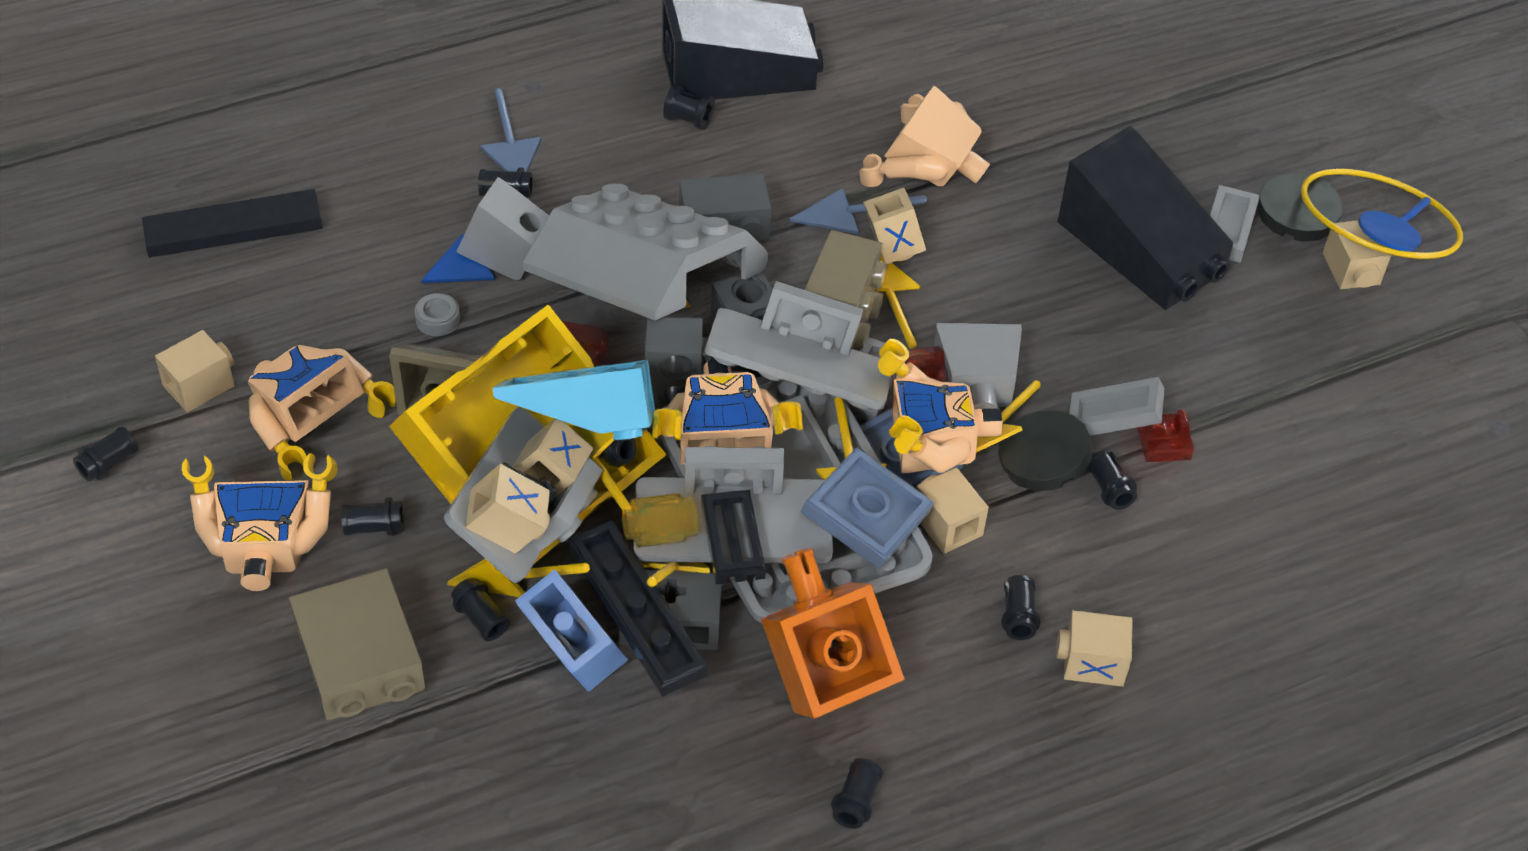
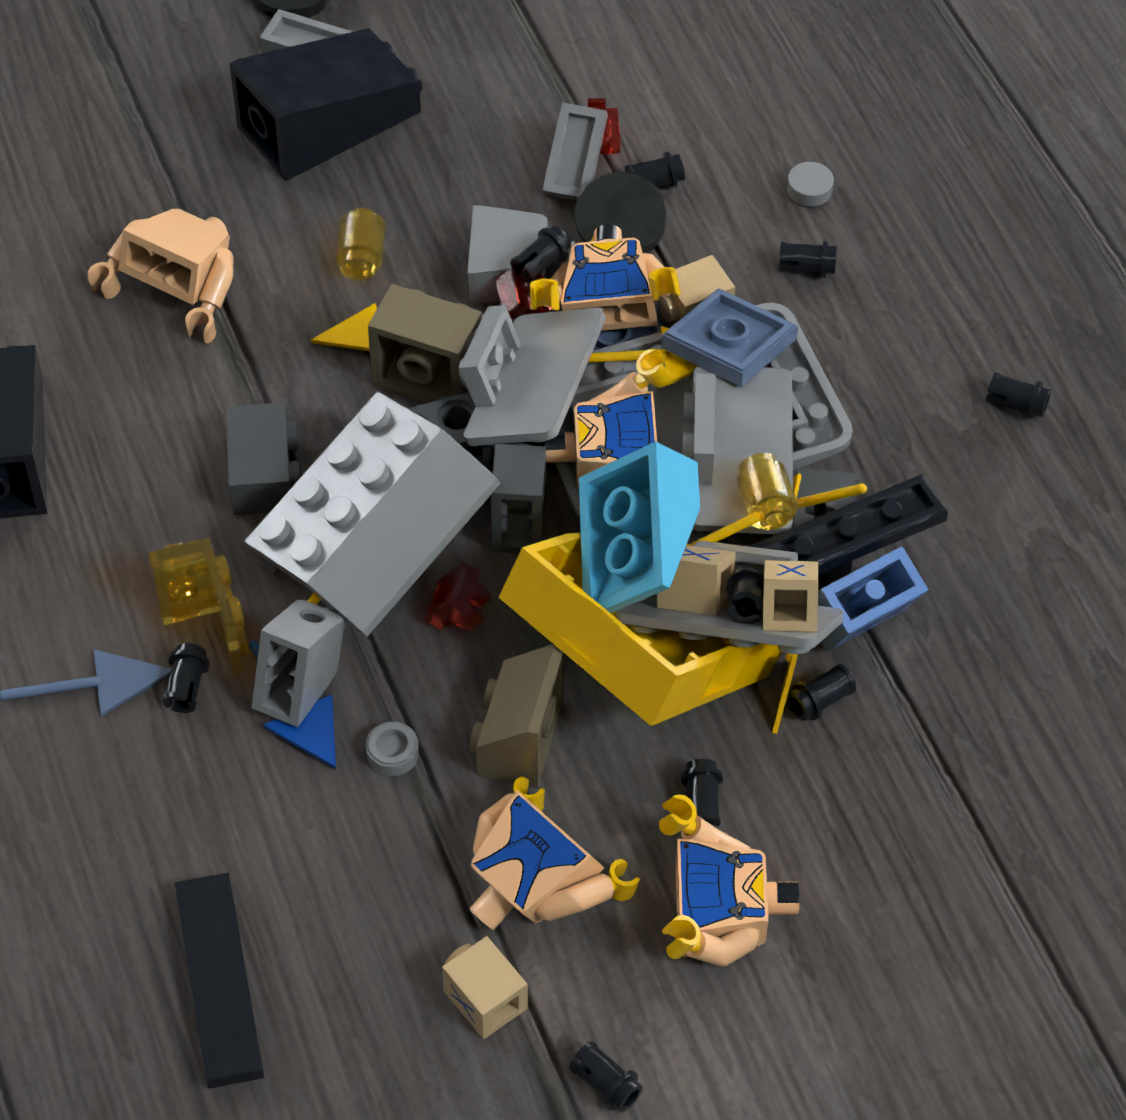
camera: 85 degrees left, 5 degrees up
(357, 644) = (874, 792): dark tan panel -> none
(562, 172) = (197, 583): none -> clear yellow bracket
(688, 107) = (76, 487): black bush -> none
(738, 567) = (788, 450): black tile -> none
(803, 634) = (886, 383): orange brick -> none
(836, 213) = (255, 371): sand blue piece -> none
(895, 226) = (313, 299): tan brick -> none
(955, 363) = (549, 247): none -> black pin
(978, 263) = (360, 244): none -> clear yellow brick
(1096, 648) = (857, 204): tan brick -> none
(1136, 606) = (810, 184): none -> light grey tile

